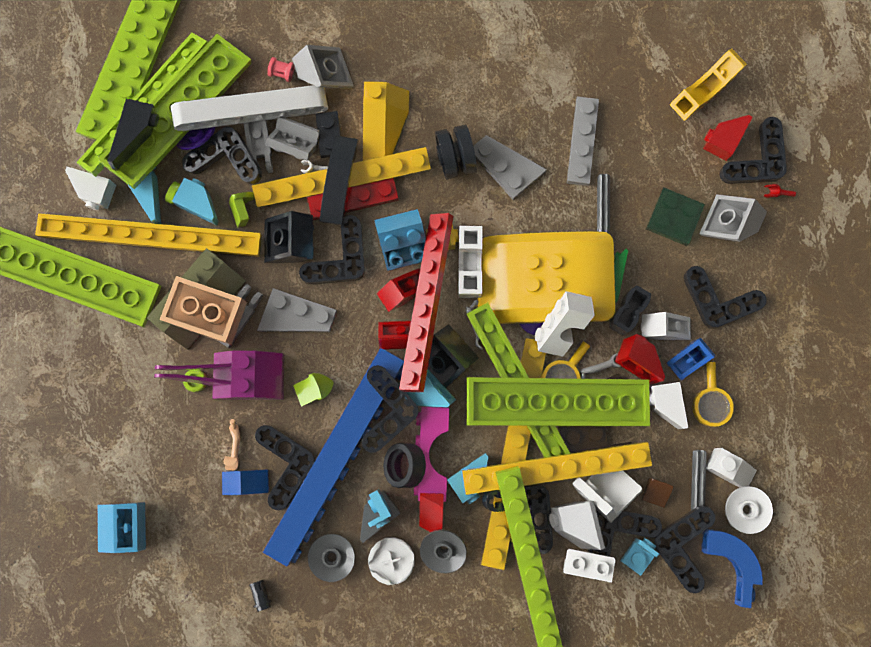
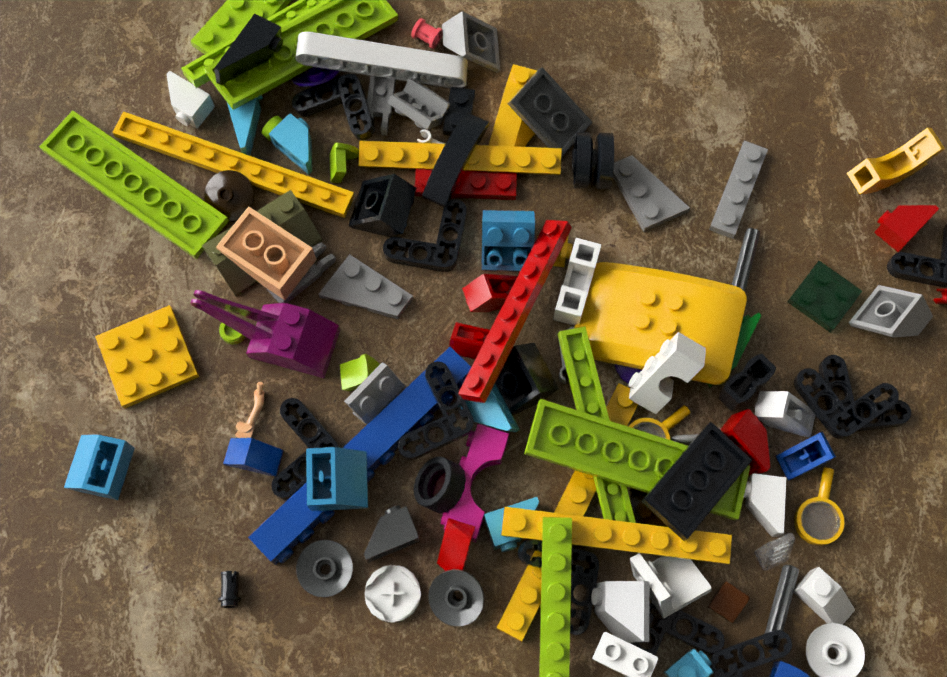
camera: 15 degrees right, 10 degrees down
(130, 423) = (147, 357): none -> yellow plate
(161, 256) = (240, 192): none -> dark brown dish
(320, 487) = (336, 479): none -> dark azure slope
(329, 404) = (374, 393): none -> light grey bracket
(379, 505) = (397, 518): medium azure bracket -> none
(407, 116) = (549, 111): none -> dark grey tile
(610, 407) = (696, 481): none -> black tile
(683, 443) = (775, 552): none -> clear slope
(709, 314) = (838, 411): none -> black beam

